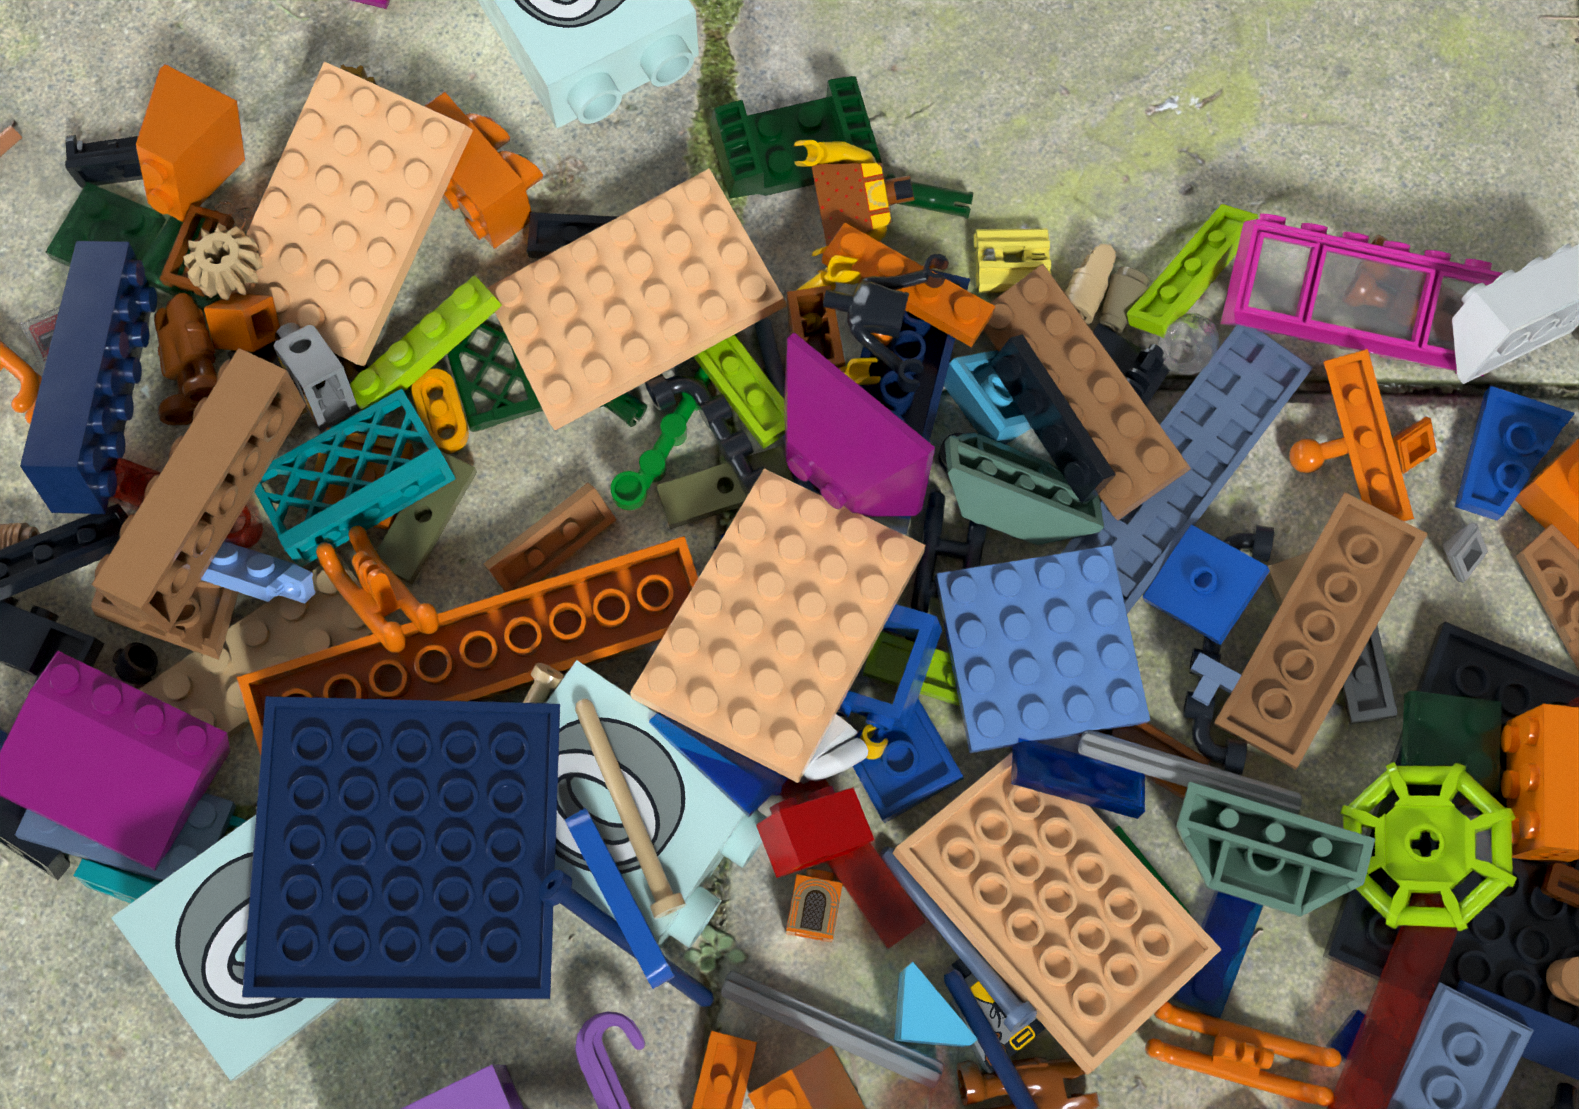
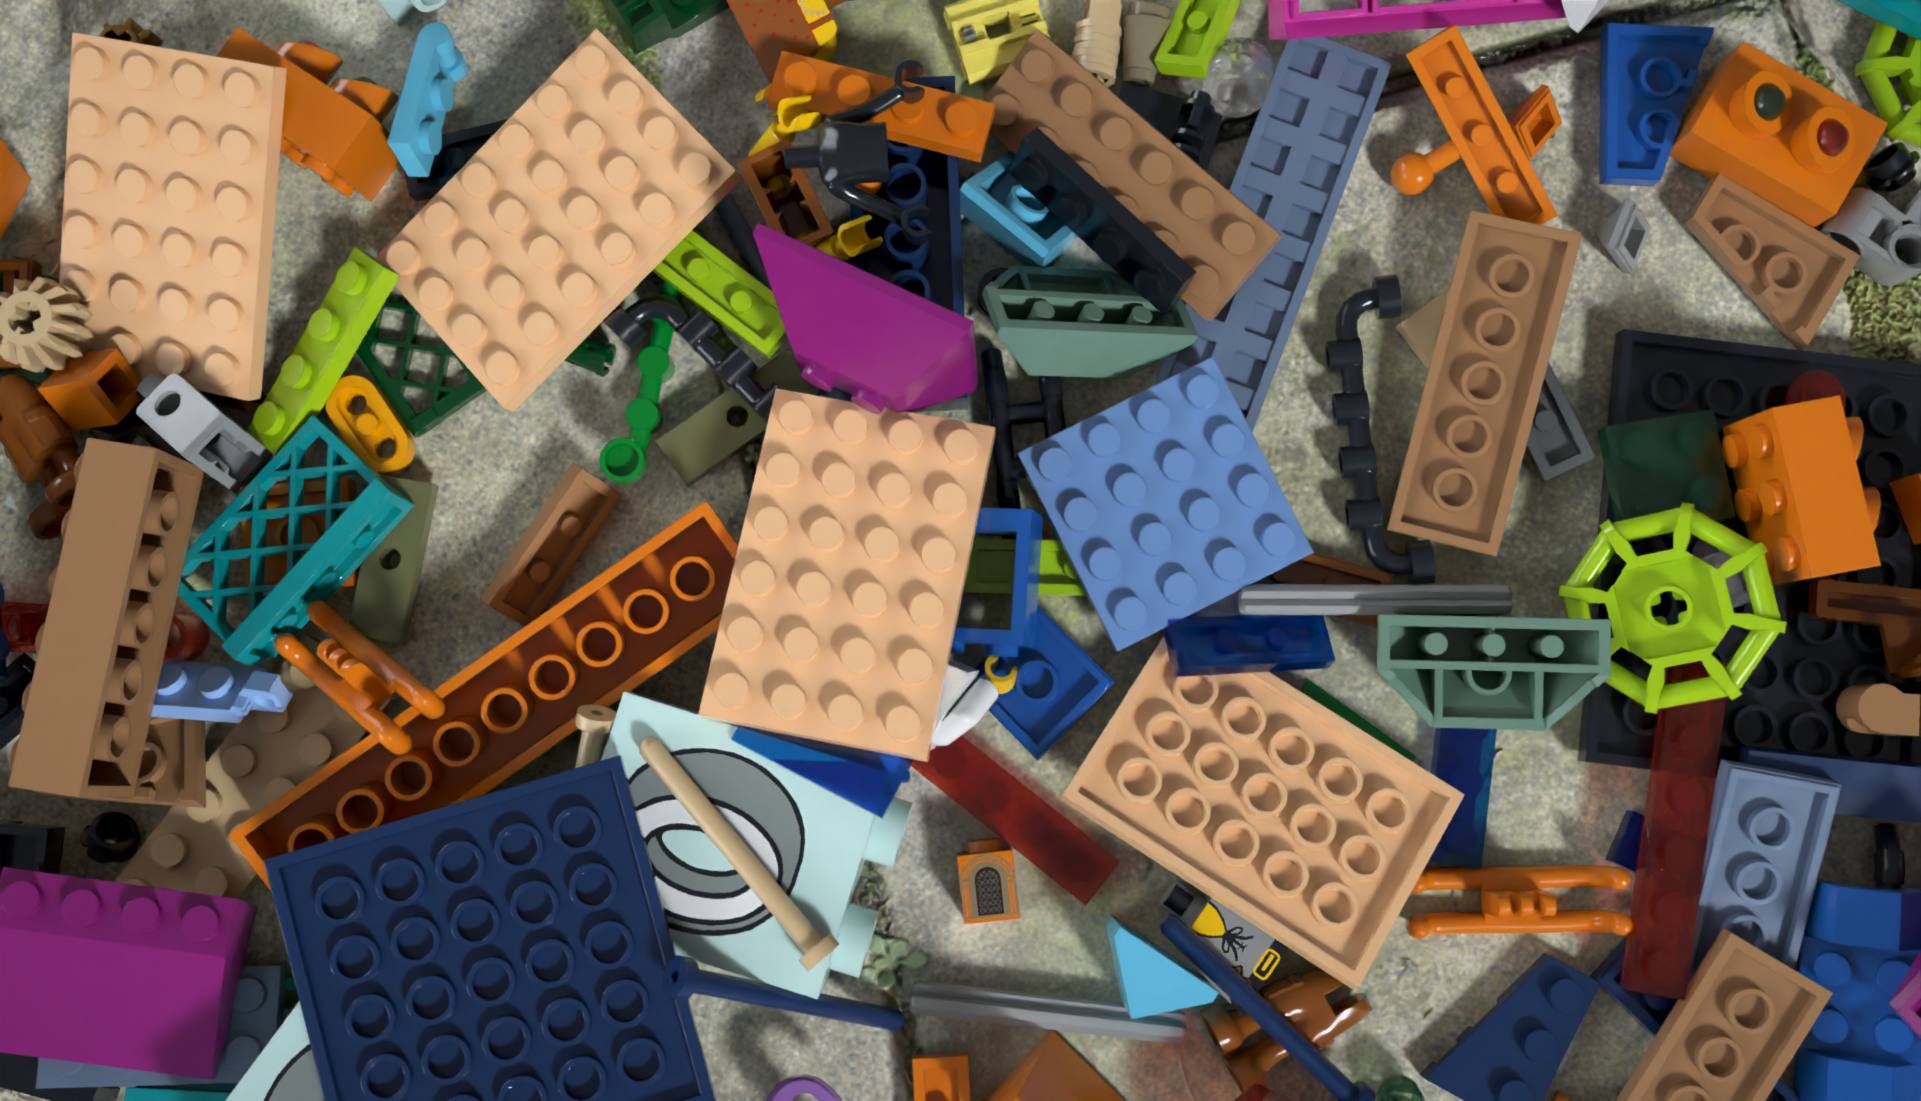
camera: 10 degrees left, 10 degrees up
(563, 184) = (426, 99): none -> medium azure plate
(619, 898) = (759, 961): blue beam -> none
(814, 830) = (964, 806): red brick -> none
(1017, 1014) = (1253, 943): sand blue bar -> none
(1206, 584) = (1335, 368): blue plate -> none
(1213, 676) = (1373, 482): sand blue tile -> none

